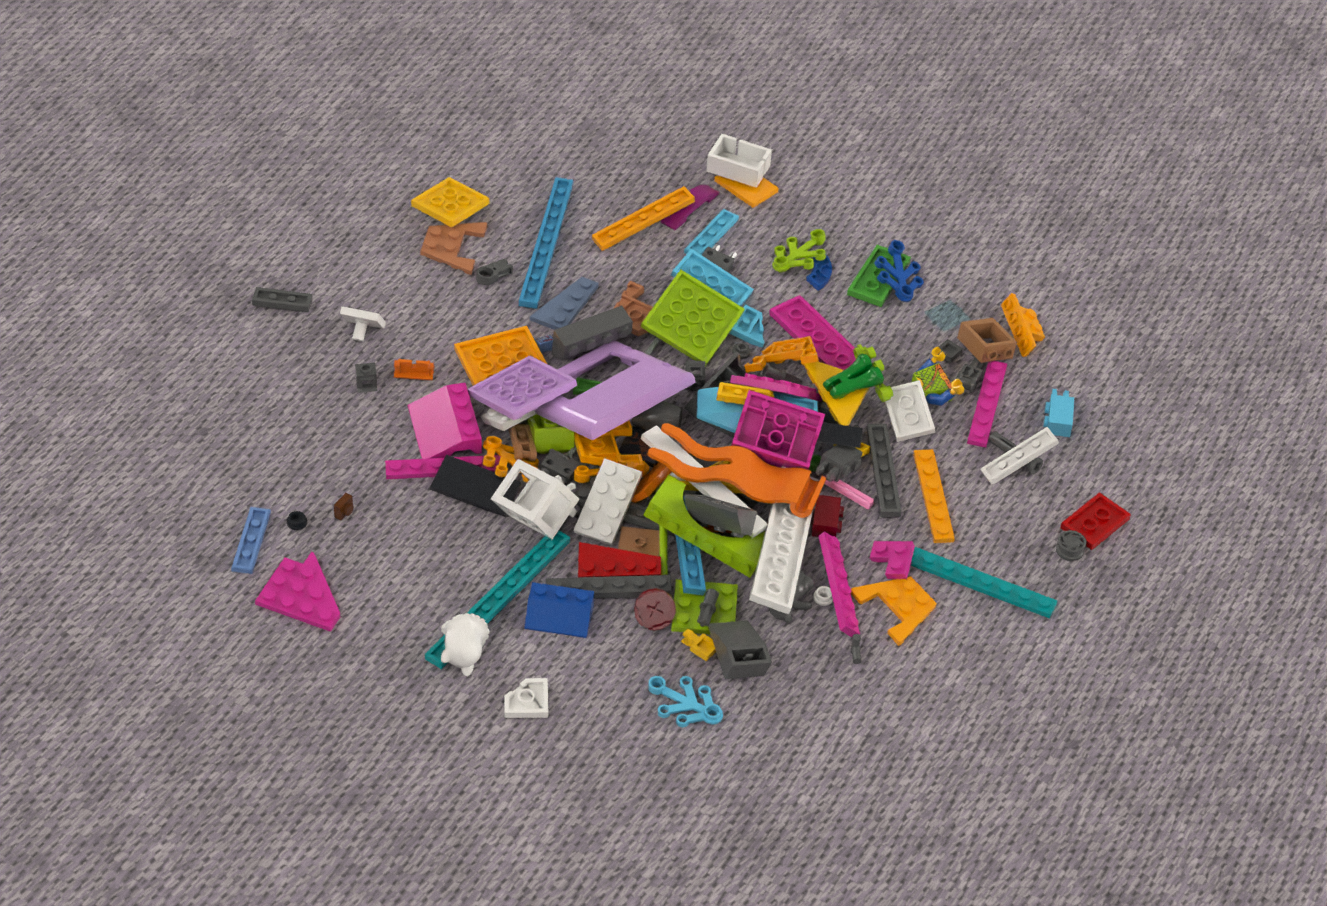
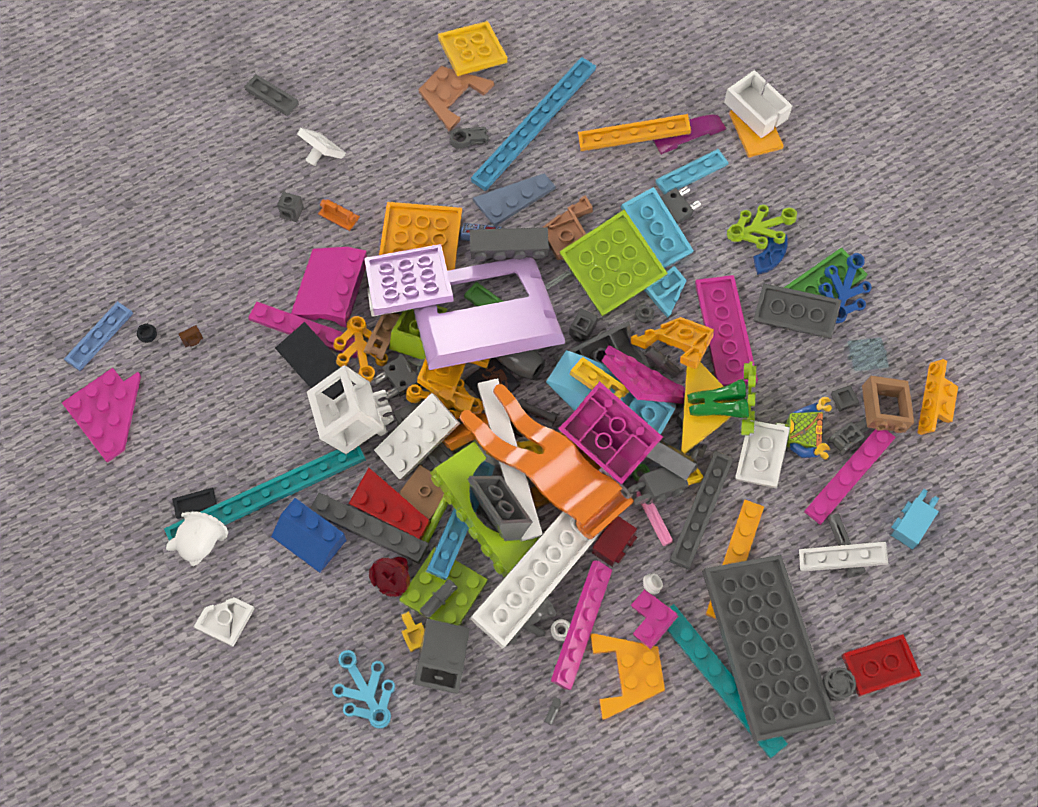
camera: 30 degrees right, 20 degrees up
(431, 632) = (194, 502): none -> black tile
(870, 300) = (797, 311): none -> dark grey plate
(877, 534) = (652, 583): none -> white plate
(1000, 538) = (768, 648): none -> dark grey plate

